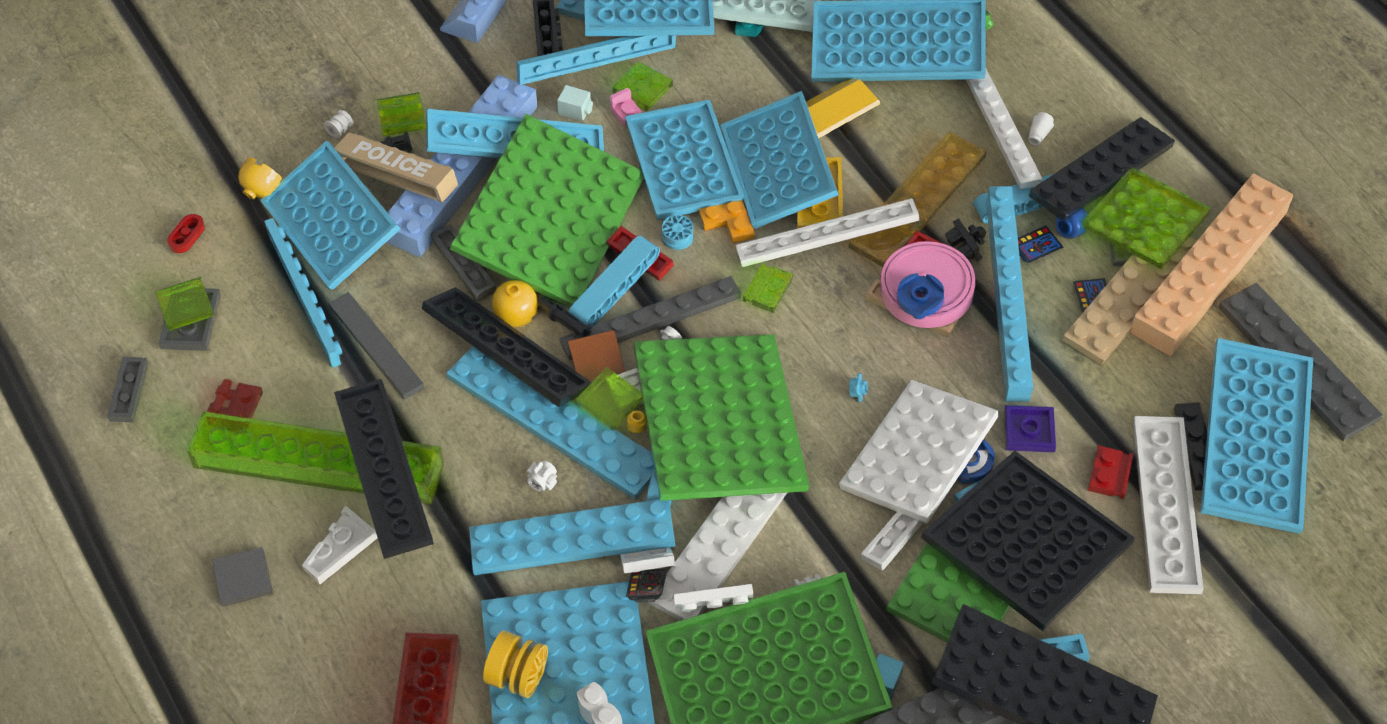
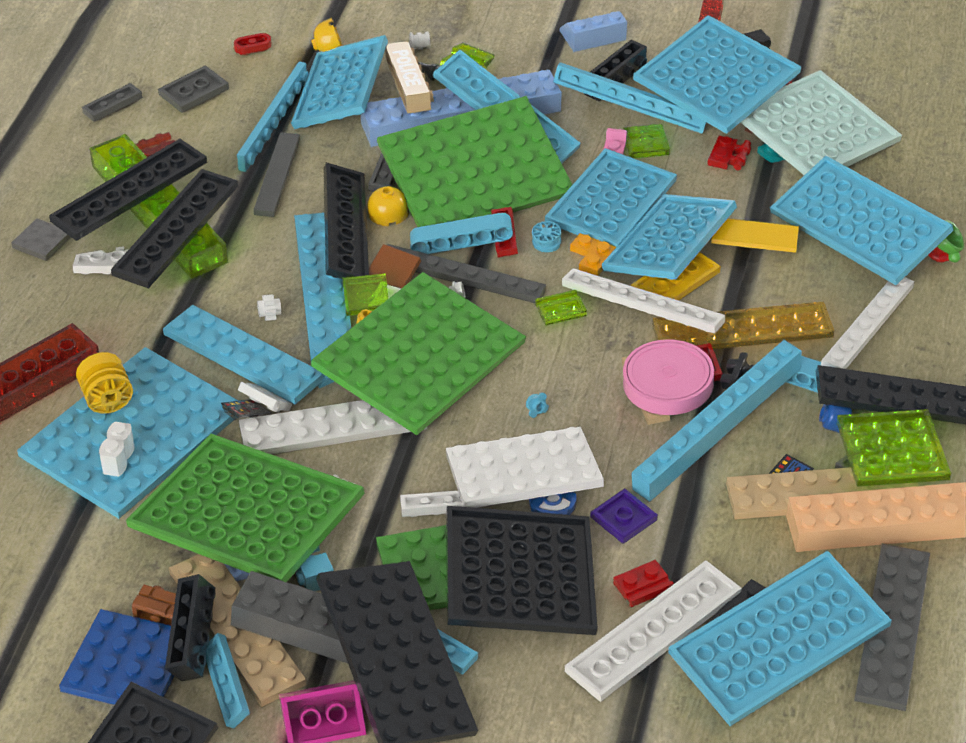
camera: 45 degrees right, 10 degrees down
(184, 303) = (197, 76): clear neon green tile -> none
(288, 465) = (127, 189): none -> black plate
(557, 313) = (403, 231): black pin -> none
(574, 103) = (582, 120): light aqua brick -> none
(713, 53) = (724, 150): none -> red plate
(713, 597) = (267, 440): white wing -> none
(918, 306) = (633, 370): blue plate -> none
(1038, 244) = (793, 413): piece -> none
(1040, 127) = (900, 345): white cone -> none

